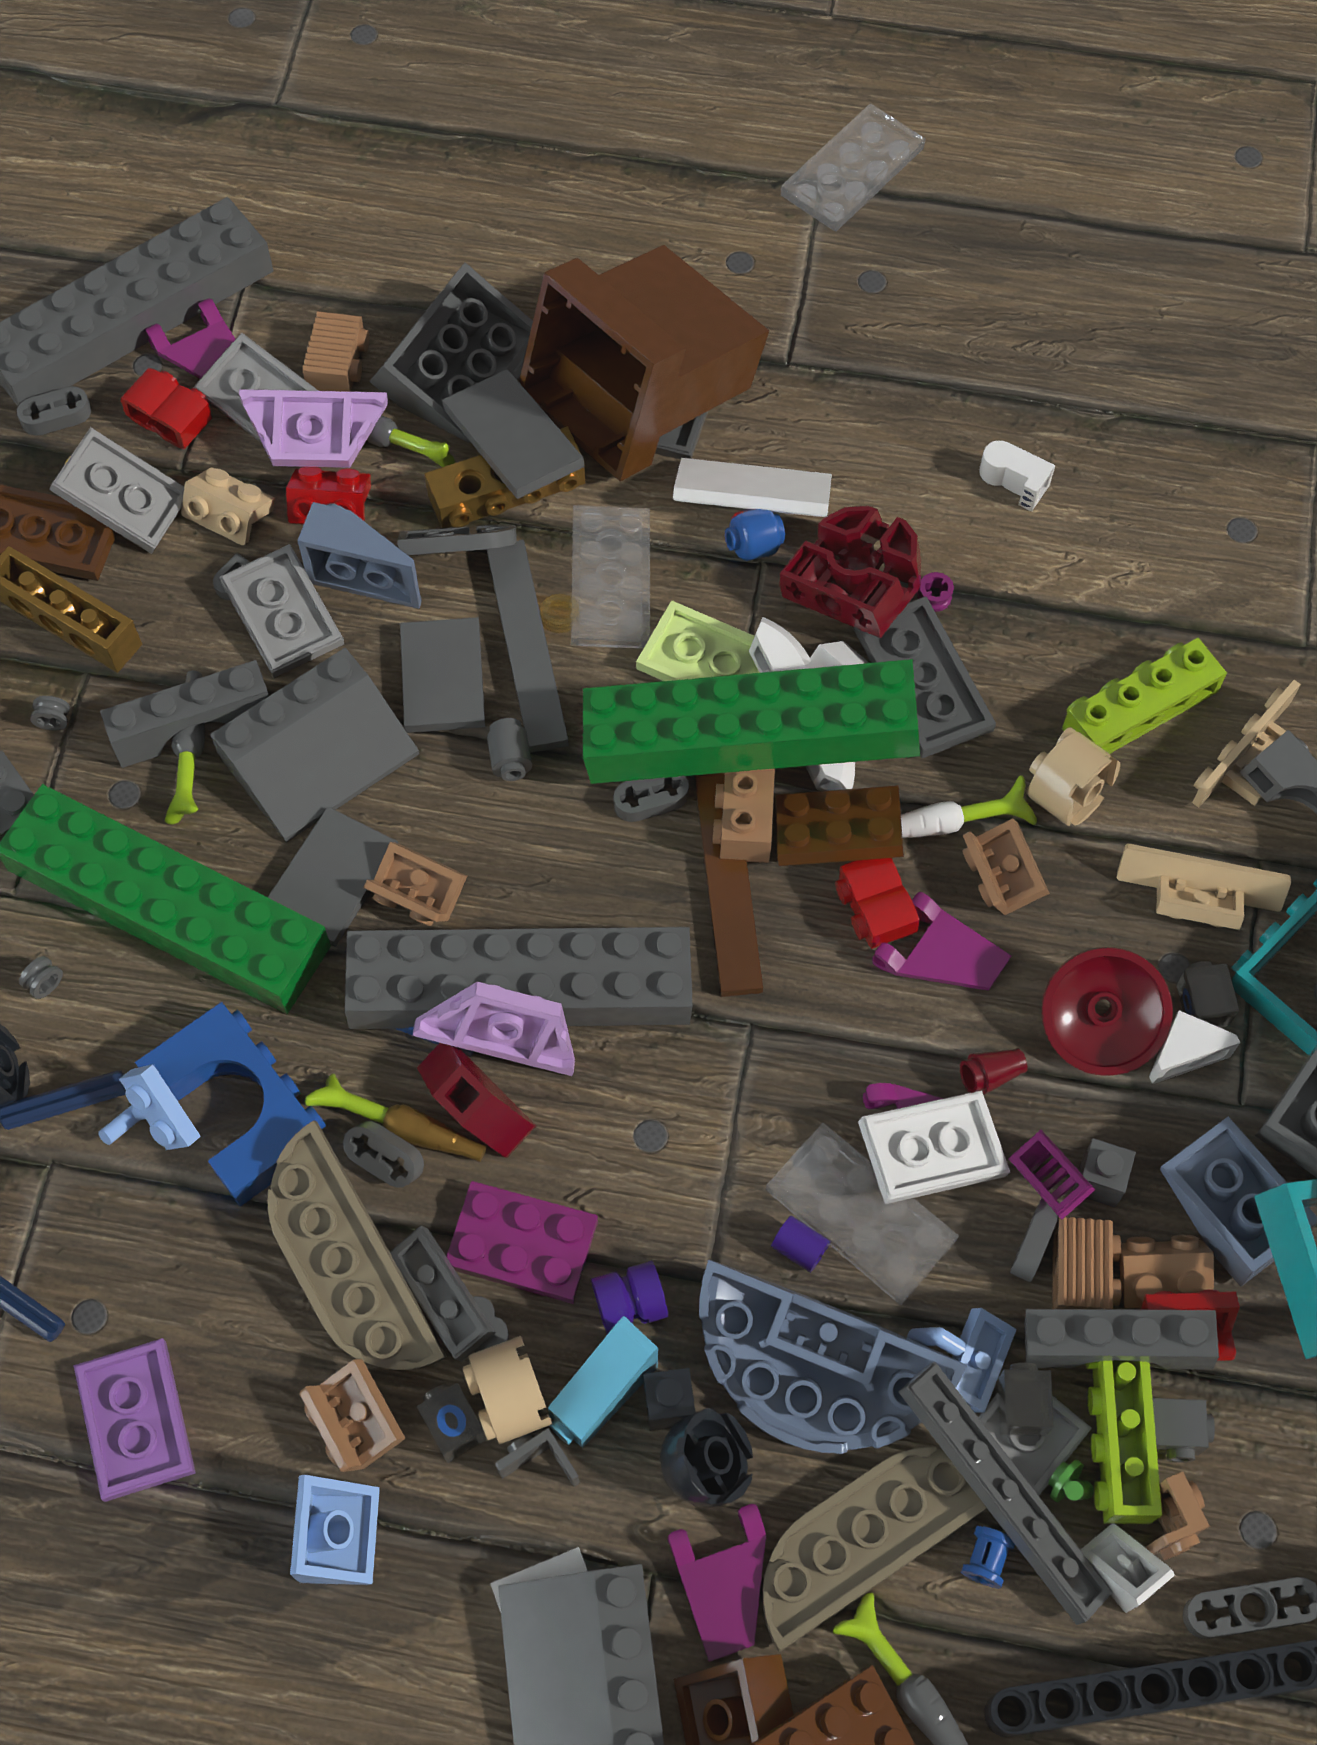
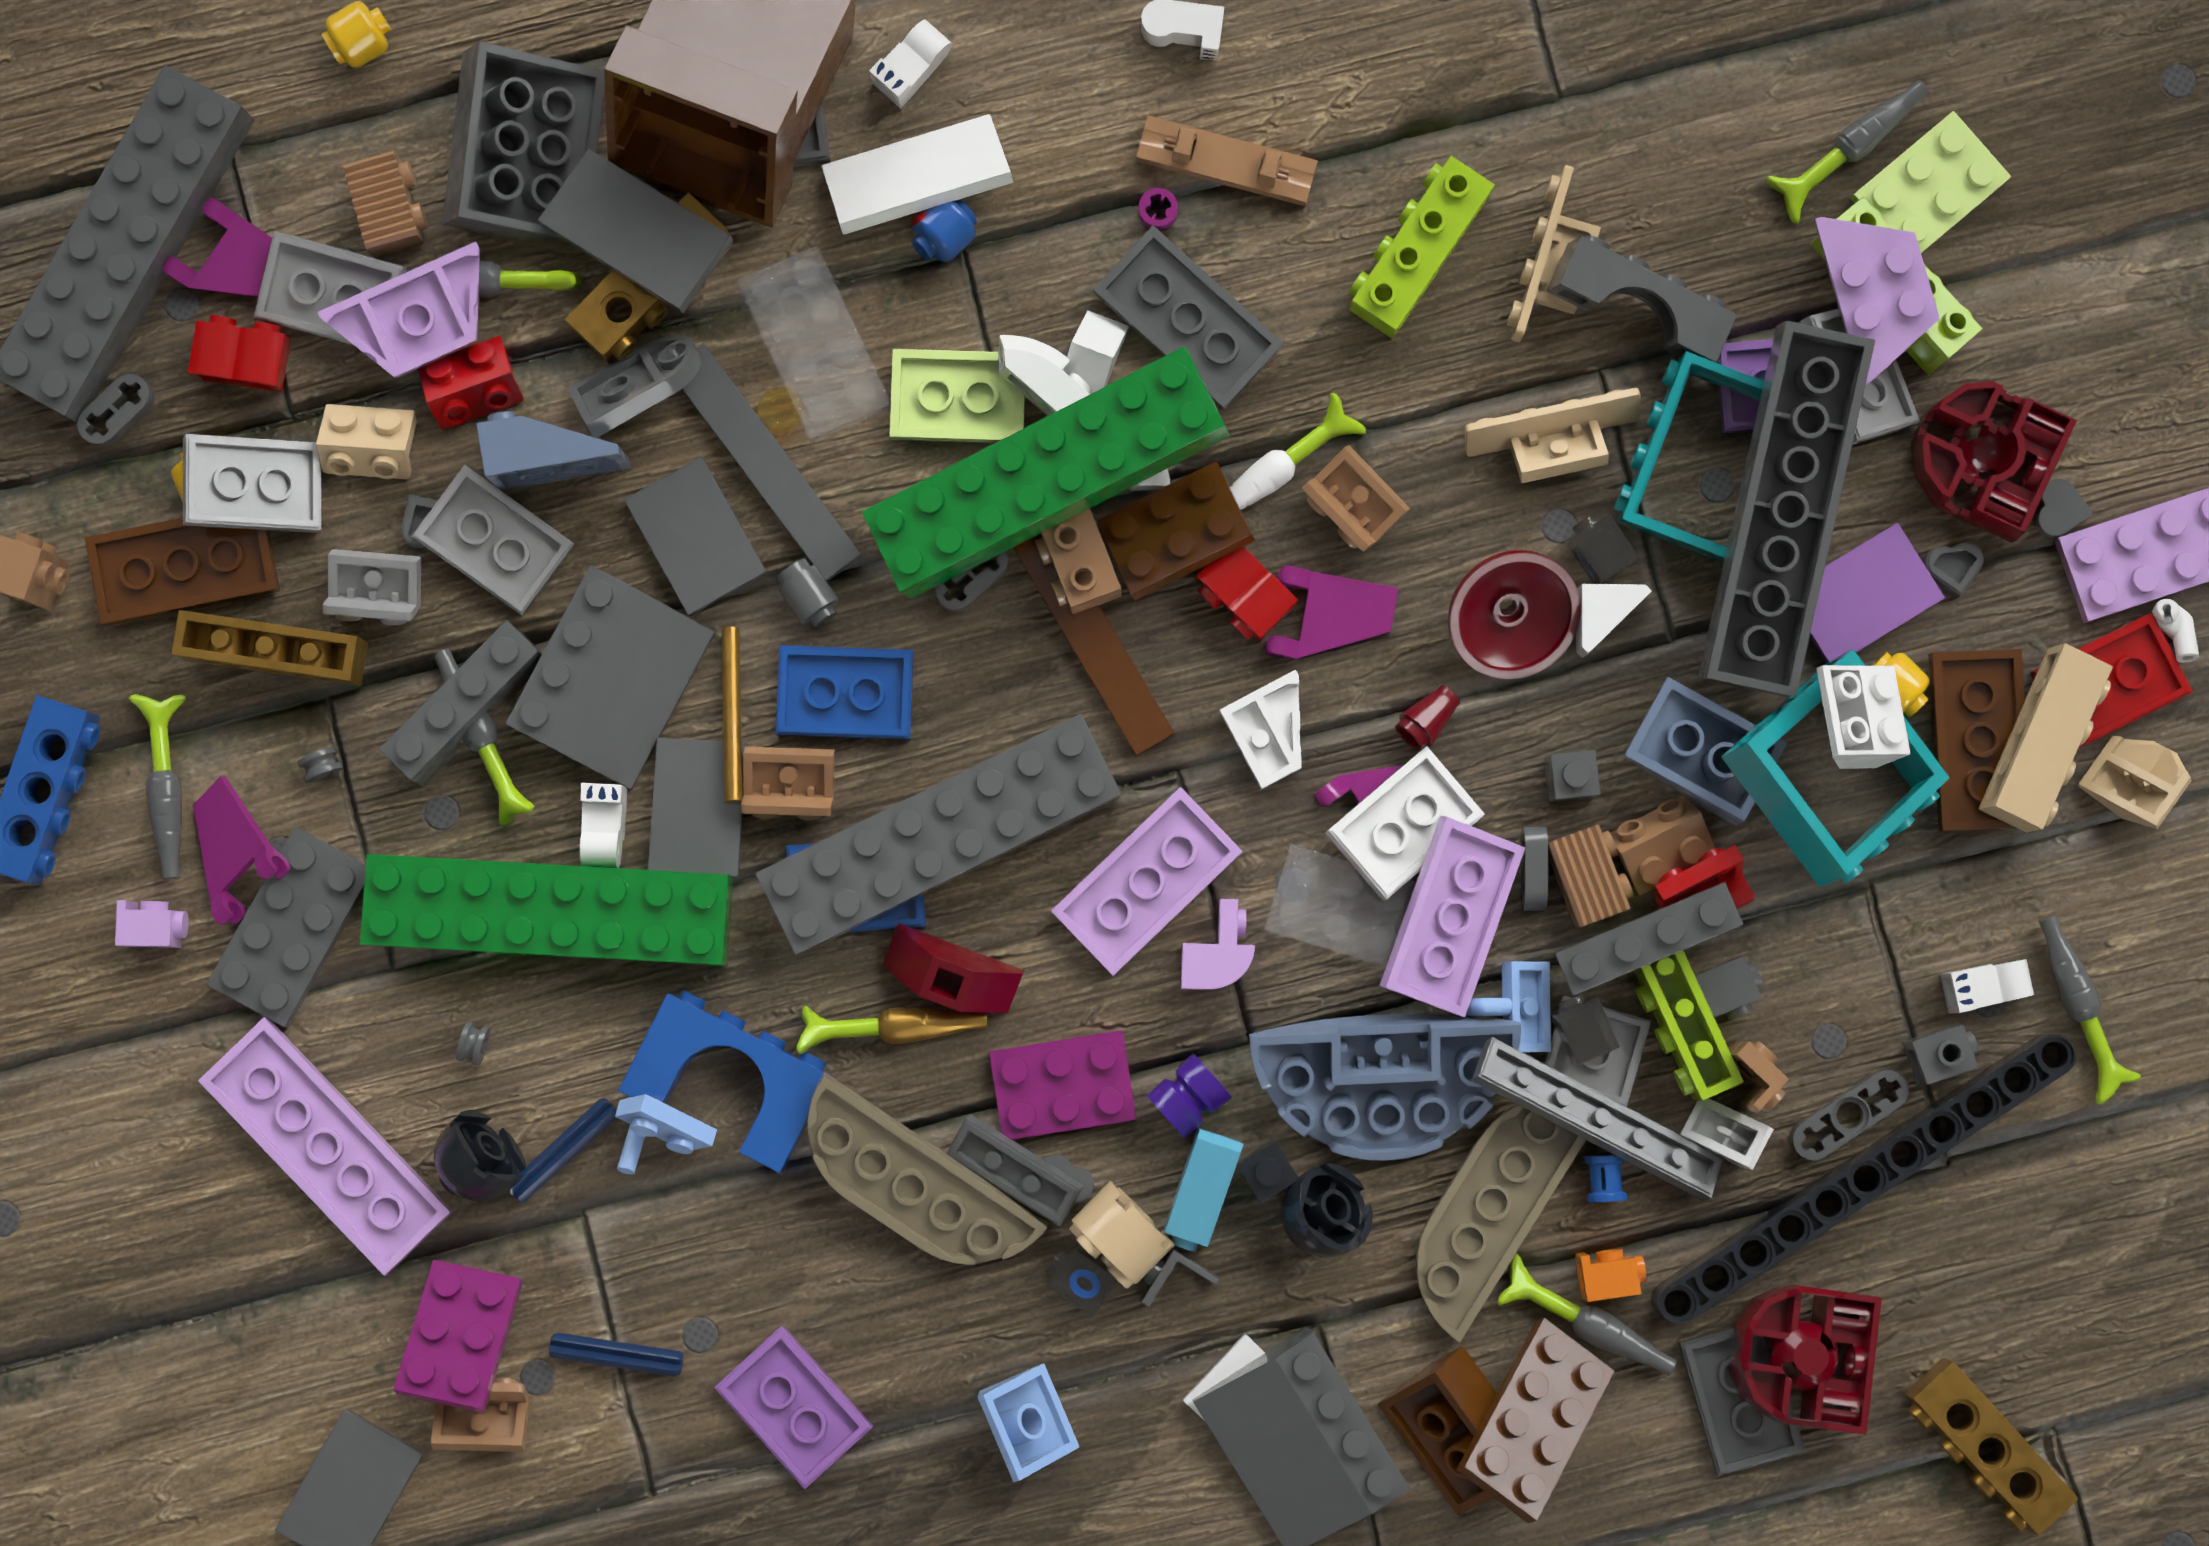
camera: 25 degrees left, 20 degrees up
(171, 601) = (373, 586): none -> light grey bracket
(249, 848) = (602, 824): none -> white leg
(352, 1417) = (990, 1317): medium nougat bracket -> none
(379, 240) = (356, 34): none -> yellow head
(384, 1152) = (895, 1064): dark grey beam -> none
(397, 815) = (731, 715): none -> pearl gold bar
(500, 840) = (844, 692): none -> blue tile
(502, 1026) = (950, 899): lavender wing -> none
(680, 1098) = (1146, 881): none -> lavender plate
(714, 1195) = (1221, 963): none -> lavender brick
(724, 1586) = (1386, 1307): magenta flag -> none
(785, 415) = (910, 63): none -> white leg
(800, 1243) = (1321, 971): dark purple piece -> none
(846, 1018) = (1268, 729): none -> white wing
(875, 594) = (1106, 260): dark red connector -> none
(942, 1242) = (1452, 916): none -> lavender plate
(955, 1654) = (1609, 1275): none -> orange brick
(1008, 580) = (1226, 160): none -> medium nougat hinge
(1037, 1151) = (1495, 800): magenta slope -> none
(1066, 1482) = (1652, 1081): bright green plate -> none
(1072, 777) = (1384, 376): tan brick -> none

